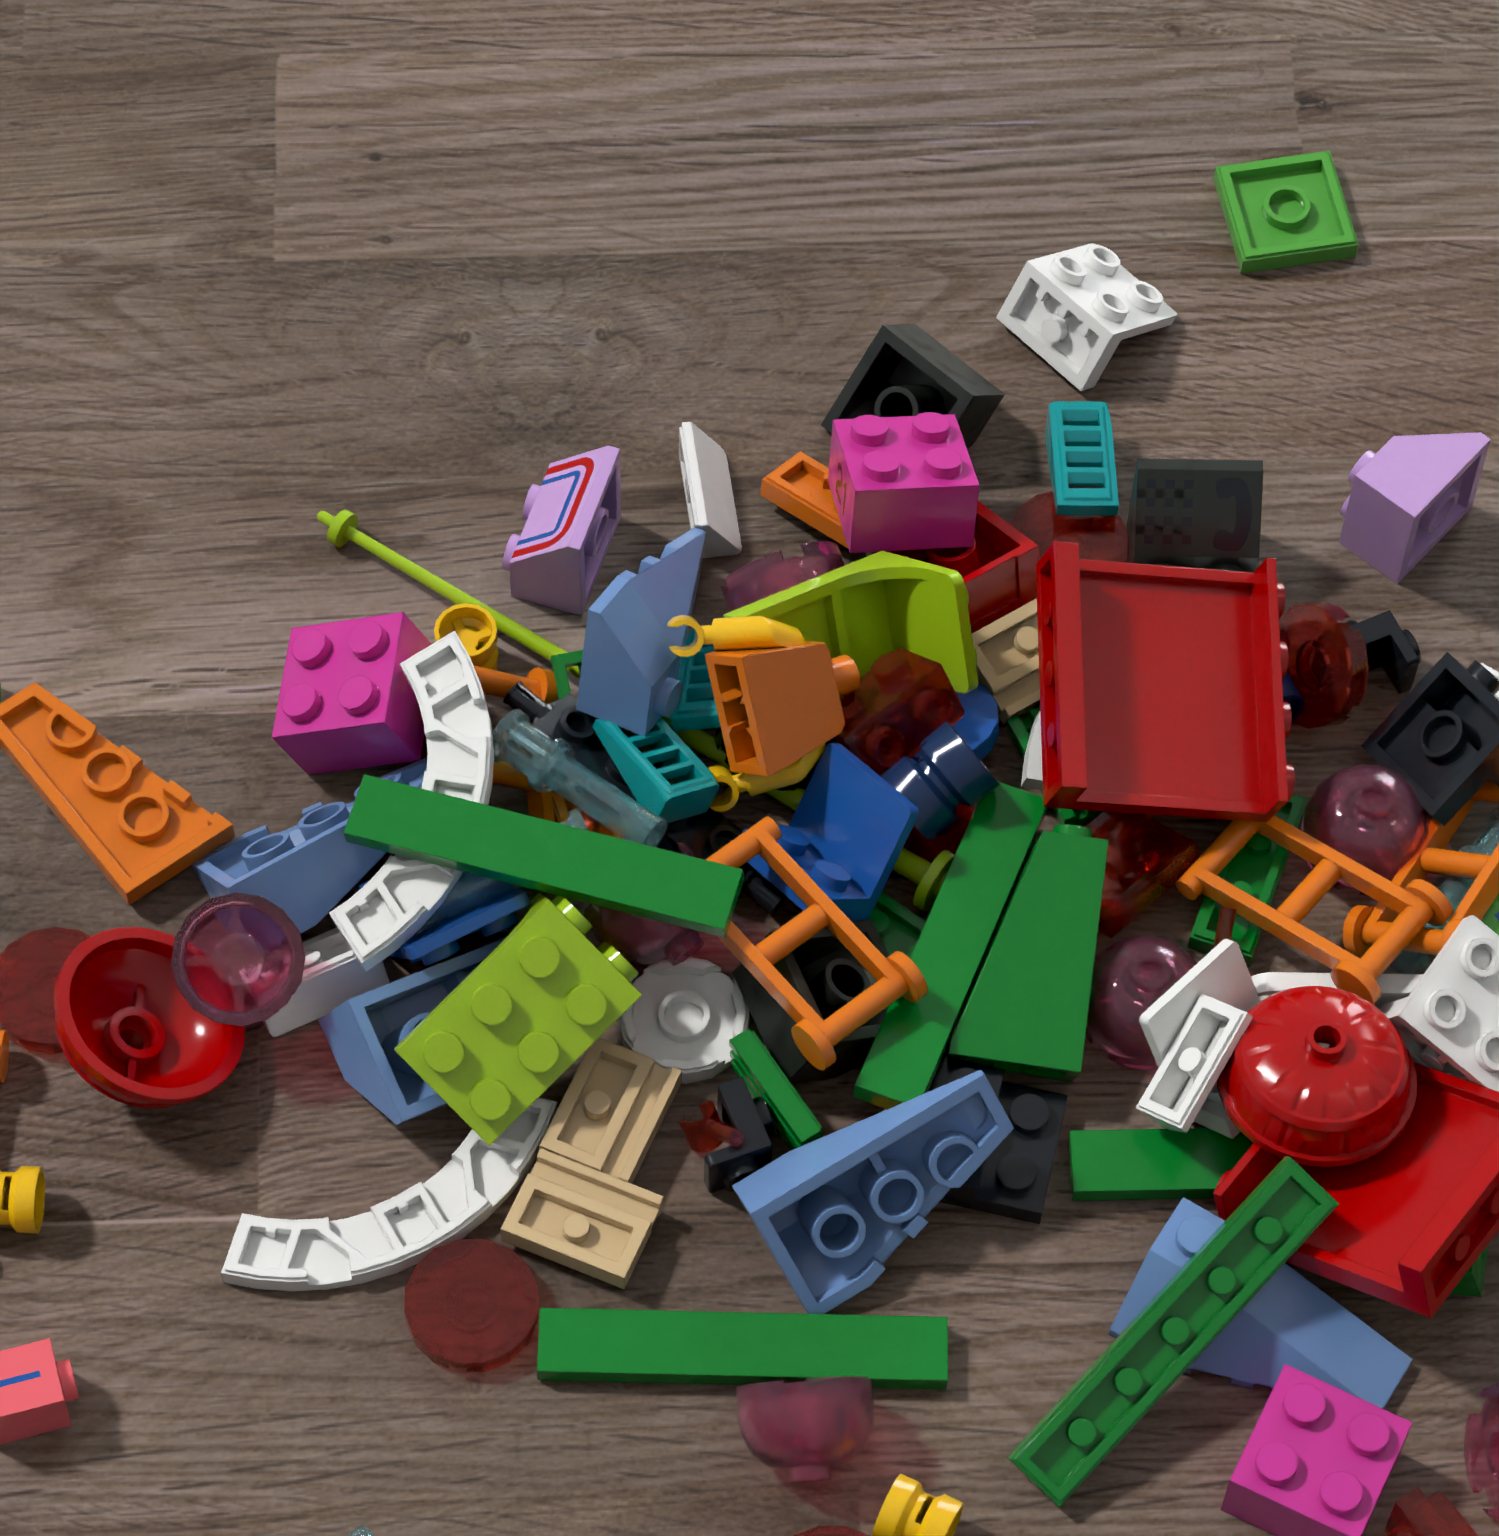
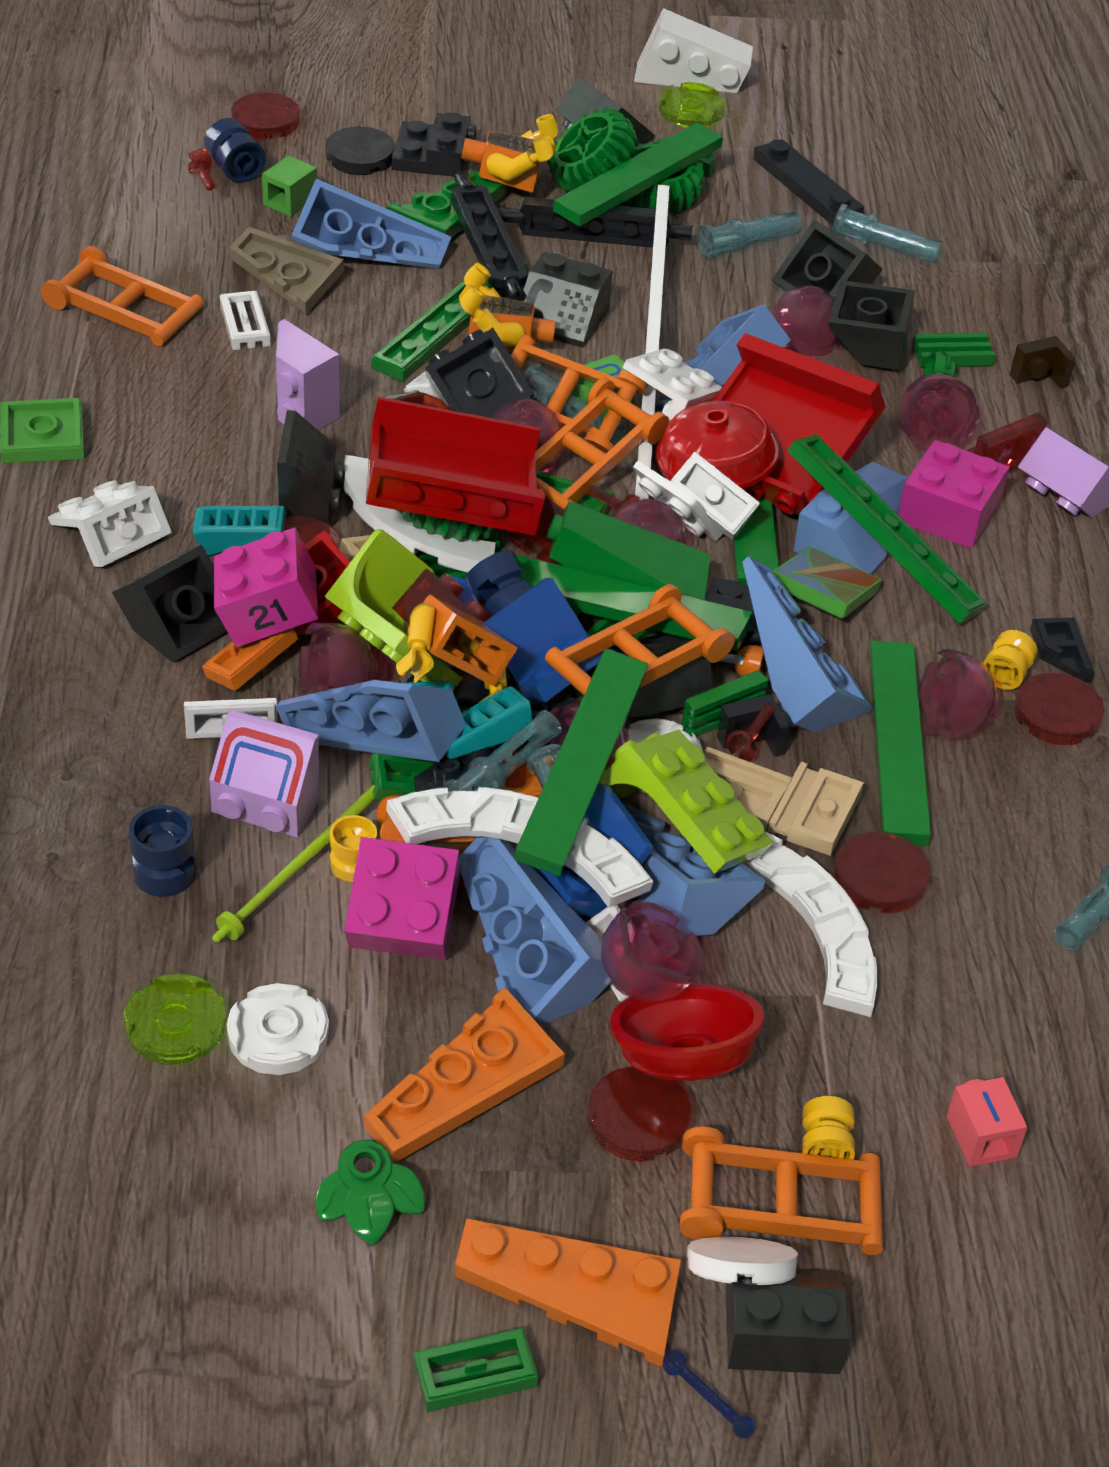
camera: 90 degrees left, 15 degrees down
(186, 596) = (278, 1029): none -> white tile
(200, 489) = (174, 1019): none -> clear neon green tile
(440, 434) = (162, 850): none -> dark blue wheel
(1070, 1256) = (827, 582): none -> tile

